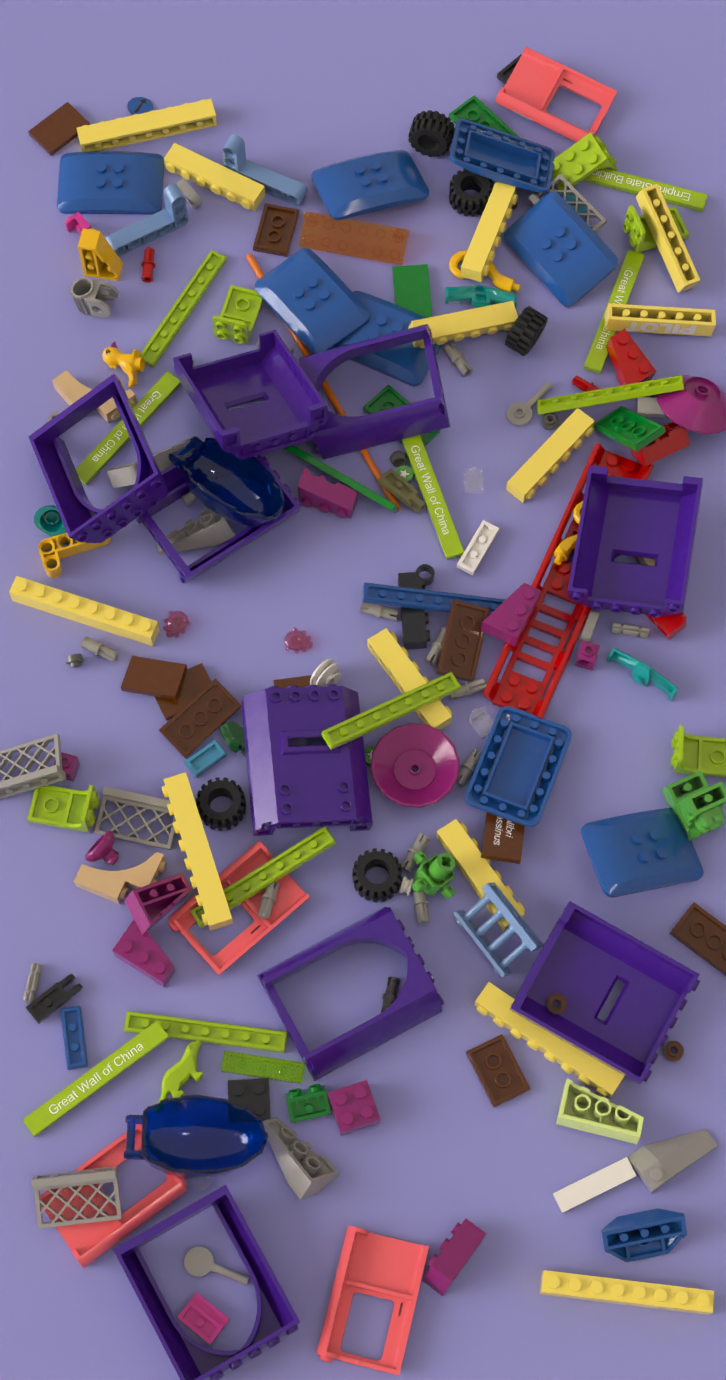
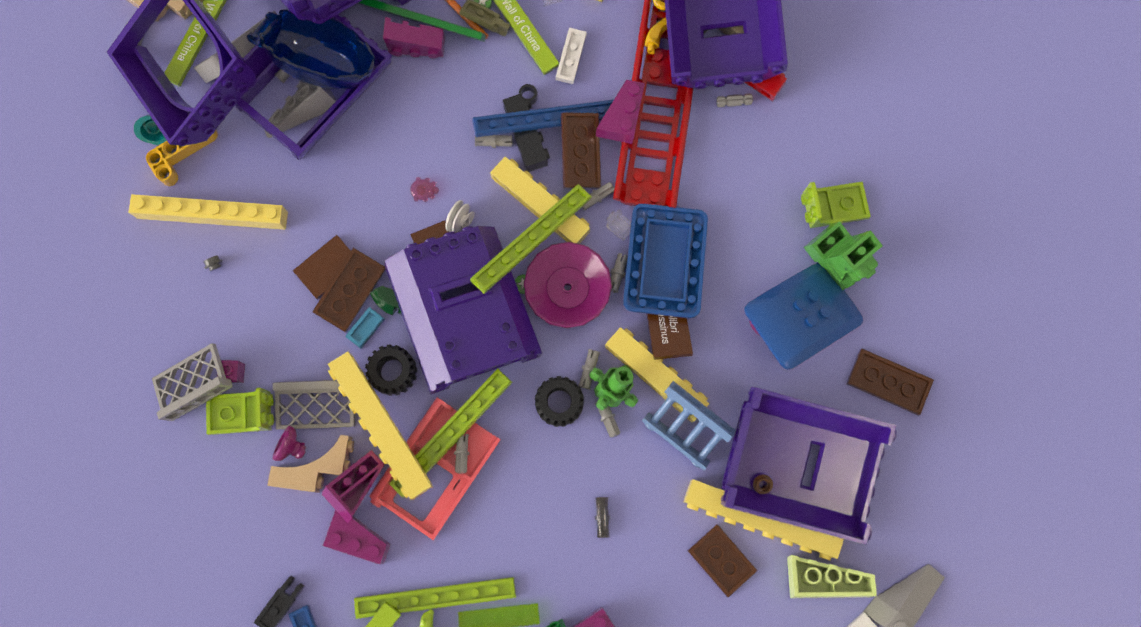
camera: 15 degrees left, 10 degrees up
(32, 983) = (254, 594): light grey axle -> none
(99, 649) = (234, 246): light grey axle -> none
(154, 677) = (294, 261): reddish brown tile -> none
(176, 623) = (302, 201): clear pink piece -> none
(406, 885) = (590, 403): white bush -> none
(413, 1006) = (628, 518): dark purple panel -> none
(436, 648) = (557, 162): light grey pin -> none
(587, 655) = (701, 135): magenta brick -> none
(590, 626) = (696, 106): light grey beam -> none
(642, 672) = (758, 139): teal plate -> none
(673, 1057) = (887, 498): reddish brown plate -> none

